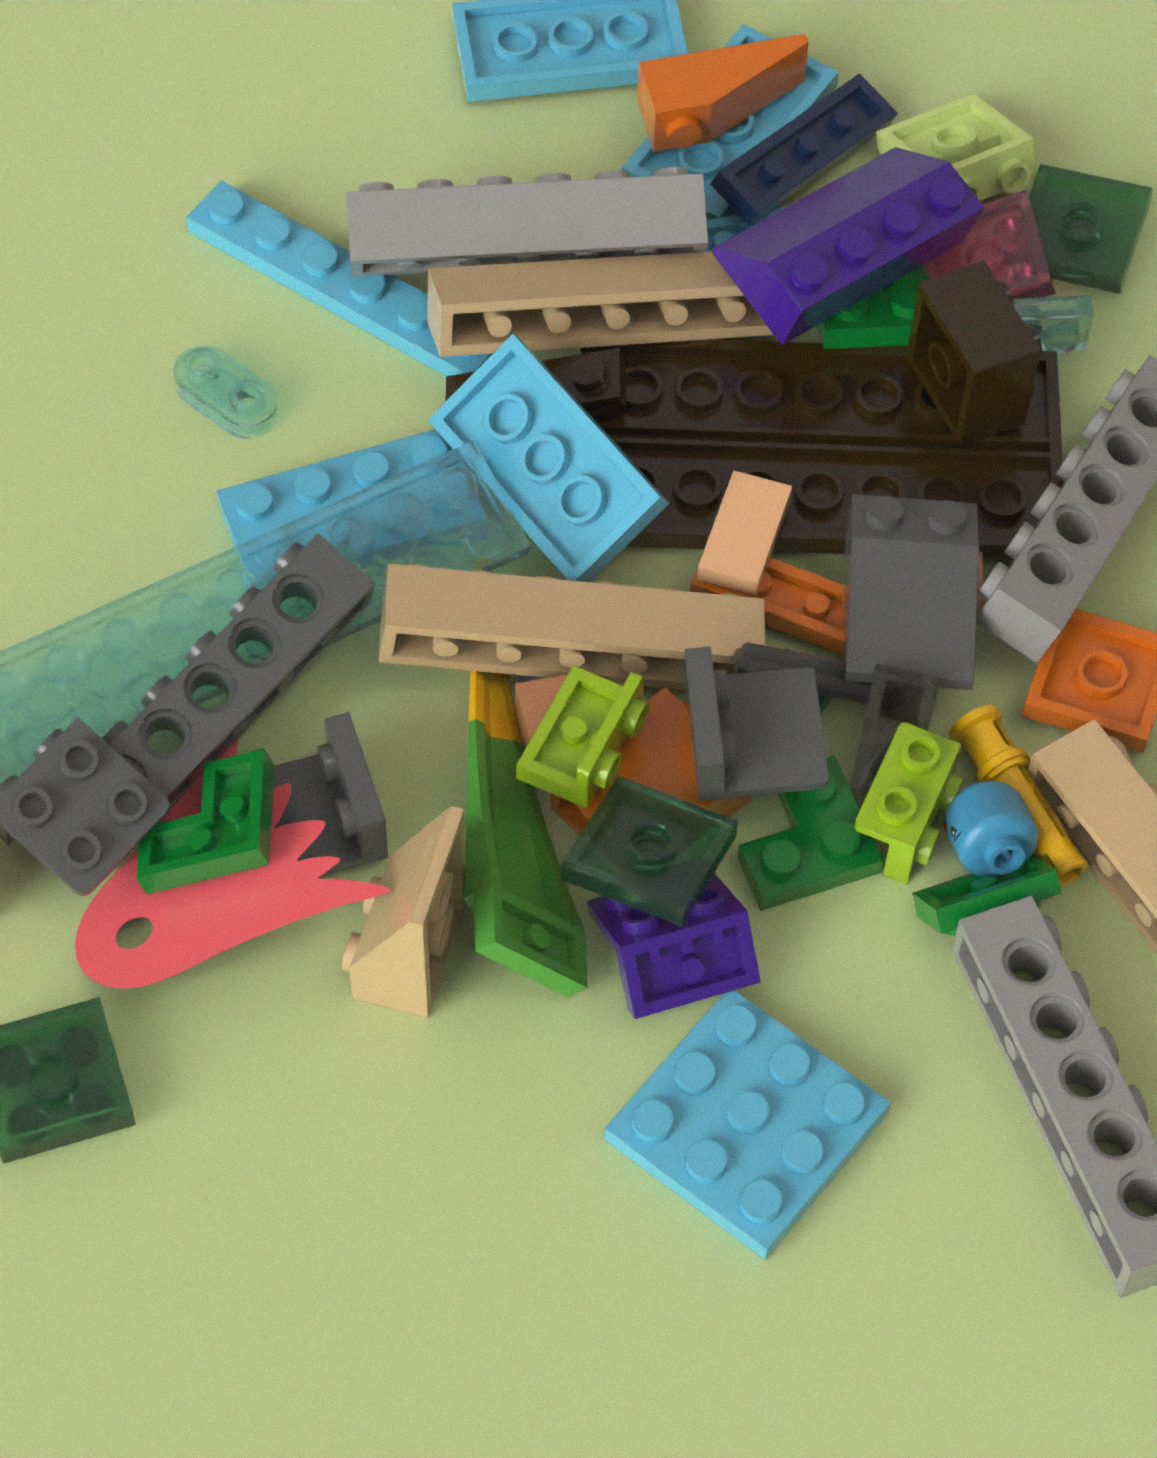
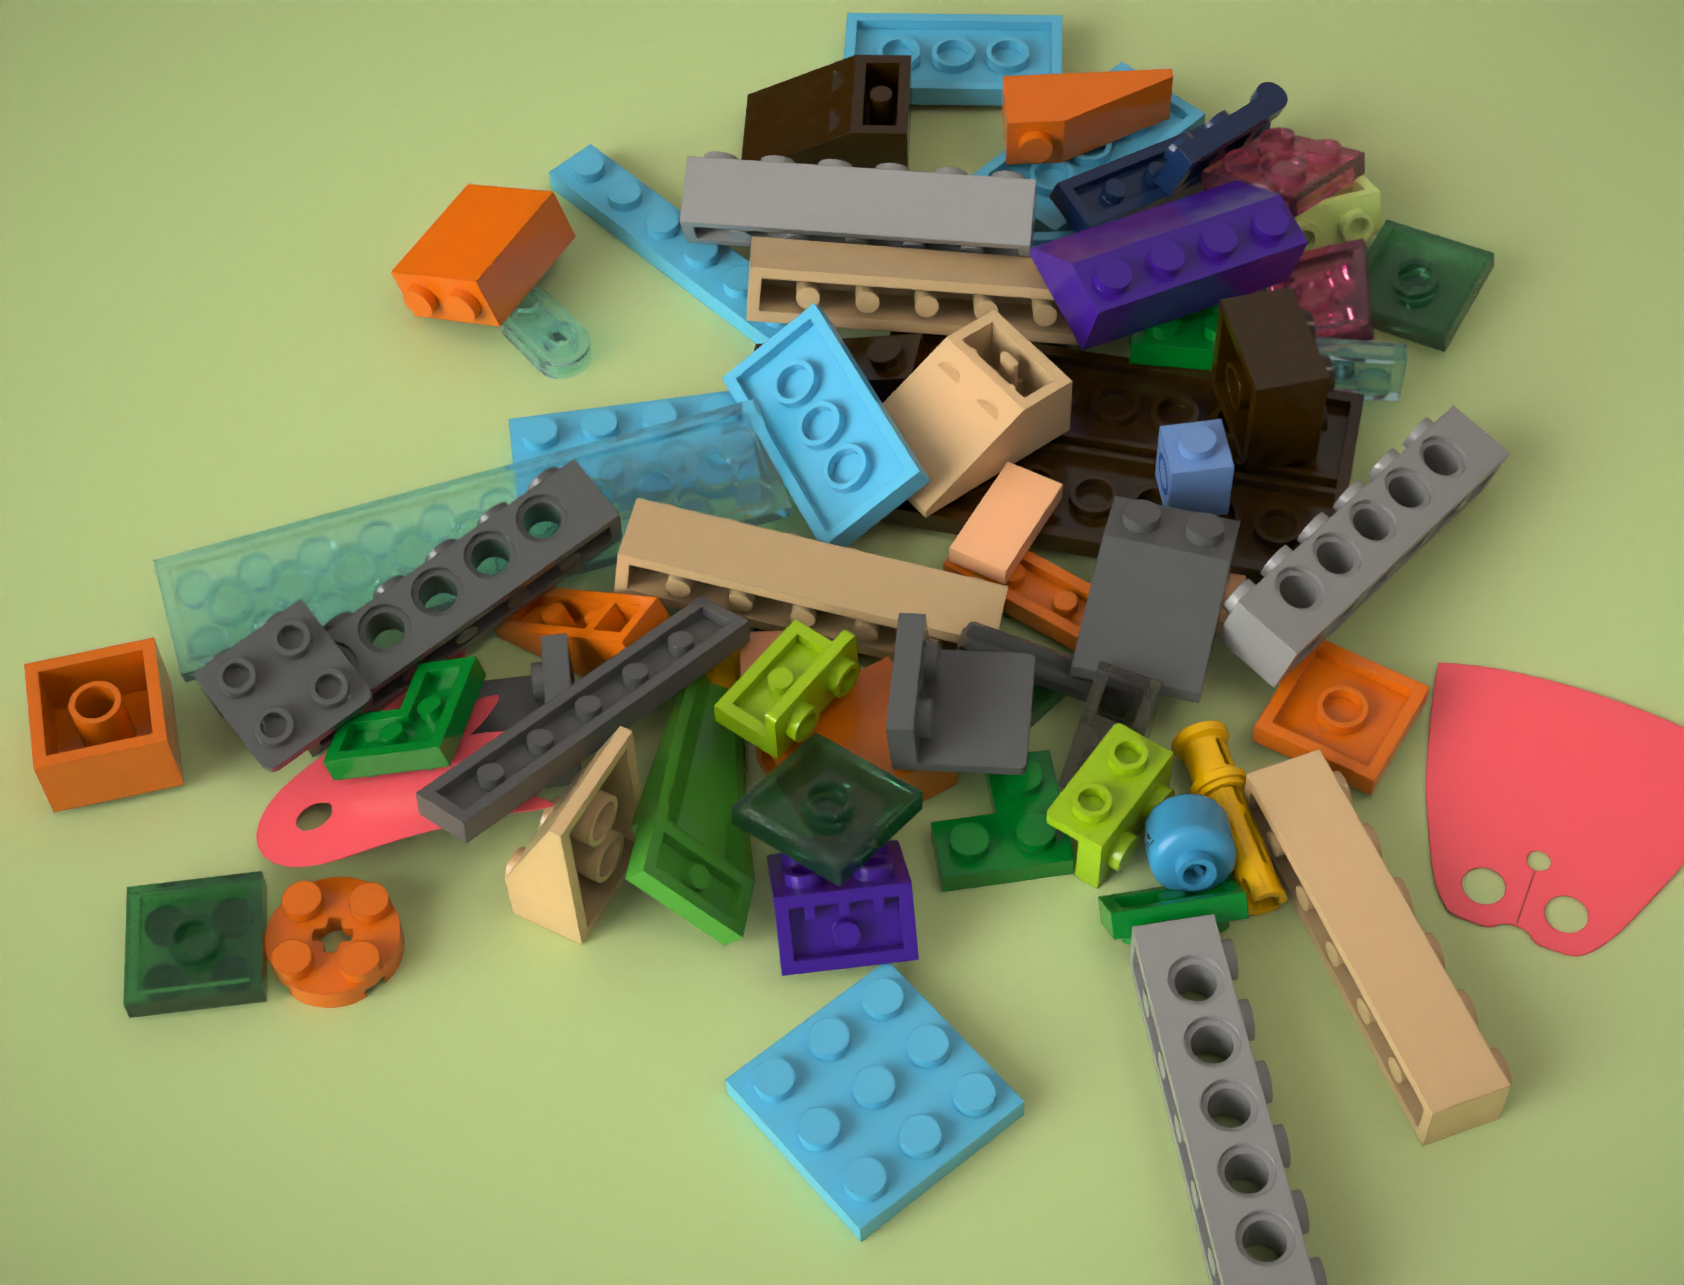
camera: 15 degrees right, 5 degrees down
(148, 318) = (483, 254): none -> orange brick
(176, 1018) = (326, 906): none -> orange plate
(394, 706) = (594, 622): none -> orange slope
(394, 799) = (581, 719): none -> dark grey plate
(468, 124) = (840, 112): none -> dark brown slope
(696, 418) = (977, 406): none -> tan slope
(866, 99) = (1222, 134): none -> dark blue plate
(918, 453) = (1195, 467): none -> medium blue brick
(935, 123) = (1289, 165): none -> clear pink plate

